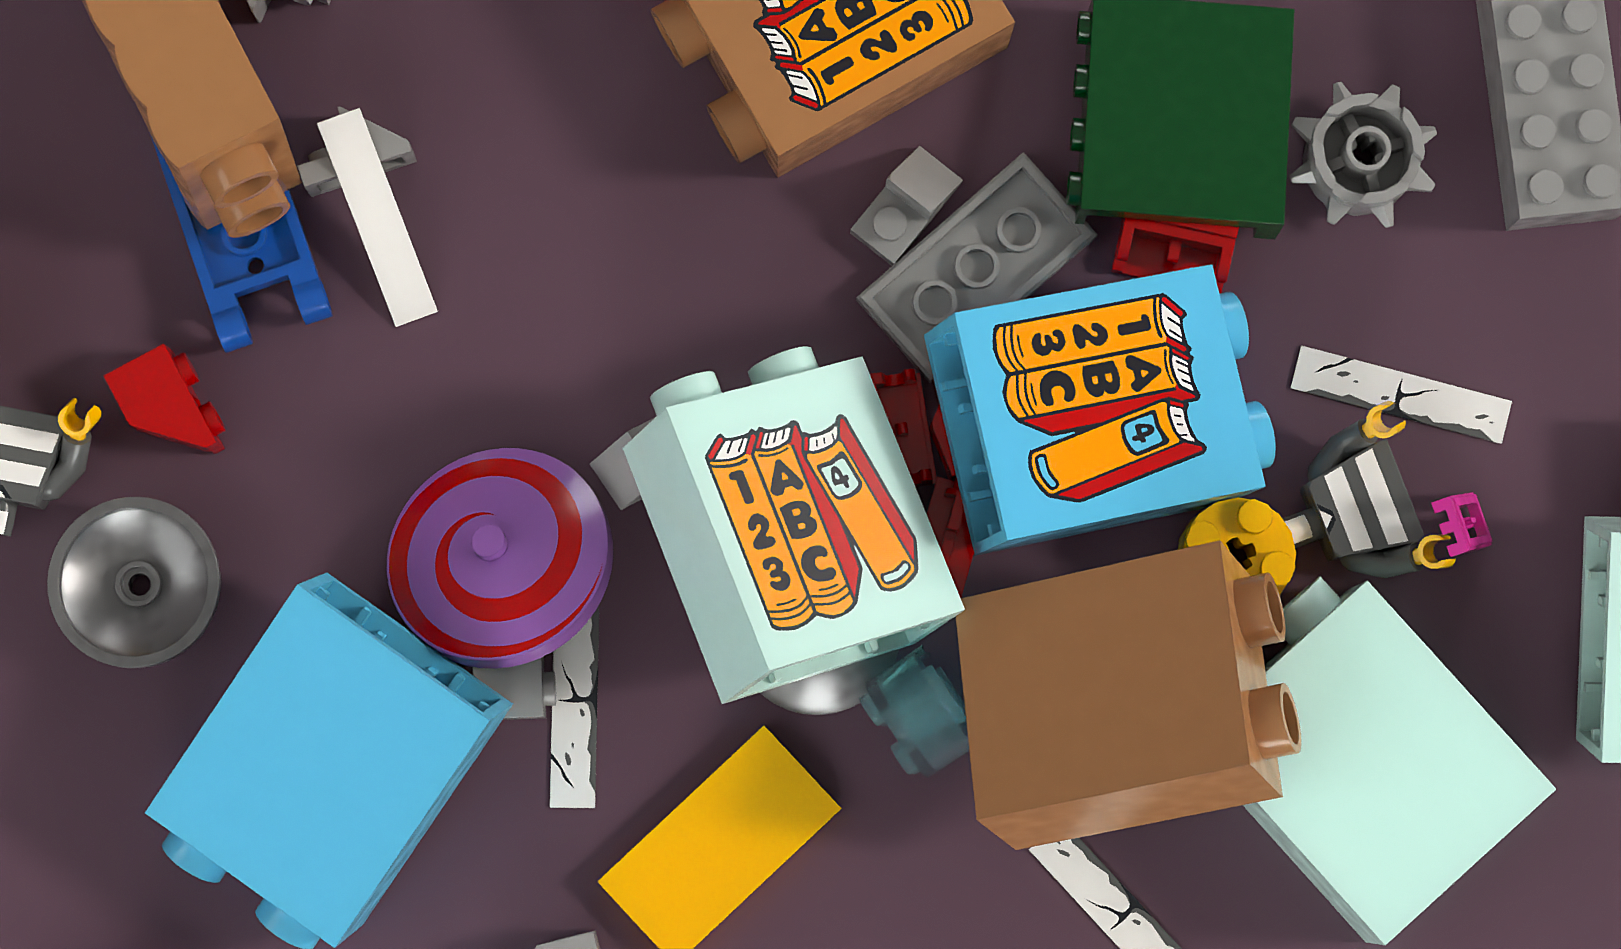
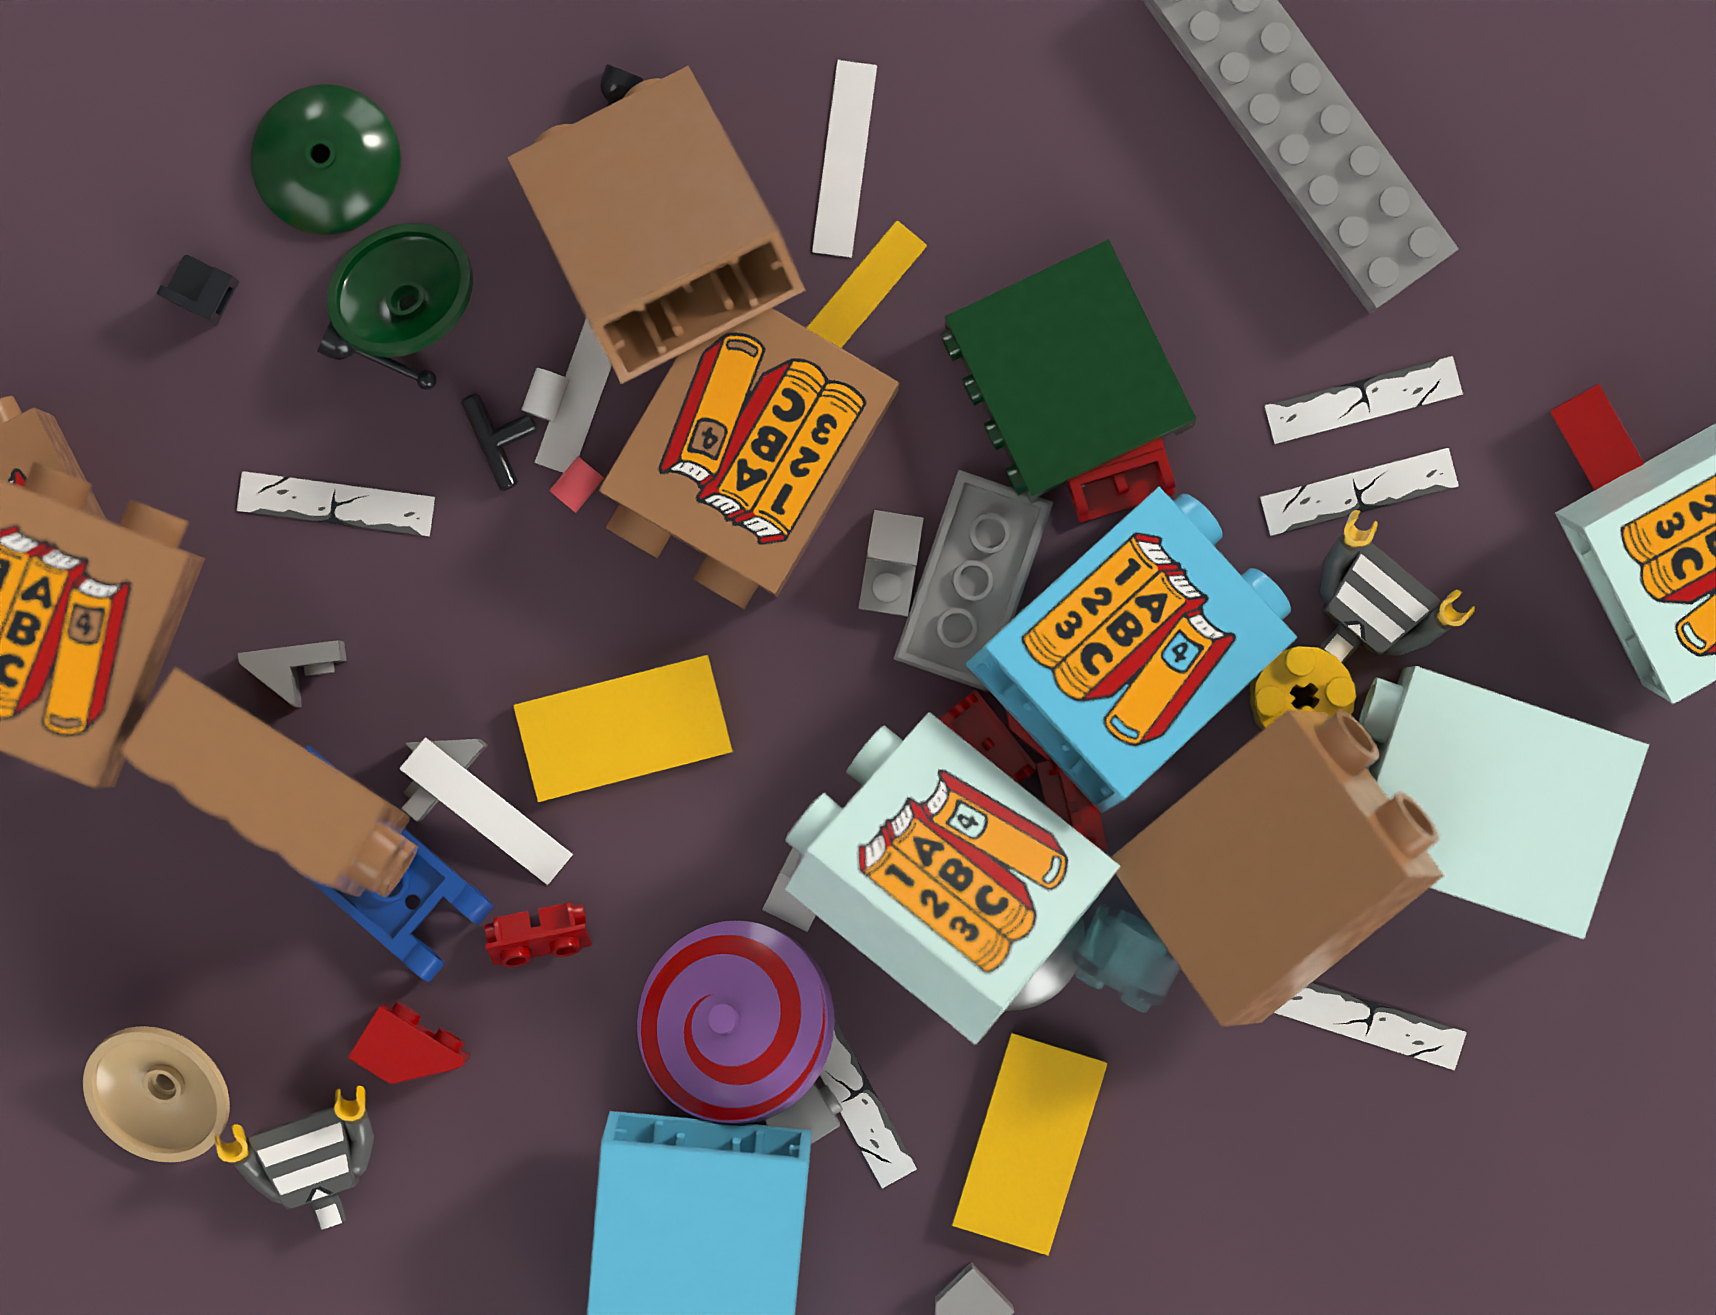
camera: 20 degrees left, 5 degrees up
(95, 575) = (444, 1232): flat silver dish -> none
(332, 362) = (515, 942): none -> red hinge
(556, 217) = (623, 728): none -> yellow tile
(1376, 126) = (1255, 324): light grey brick -> none
(1454, 309) = (1363, 400): none -> white sticker
(1460, 525) = (1458, 577): dark pink tile -> none

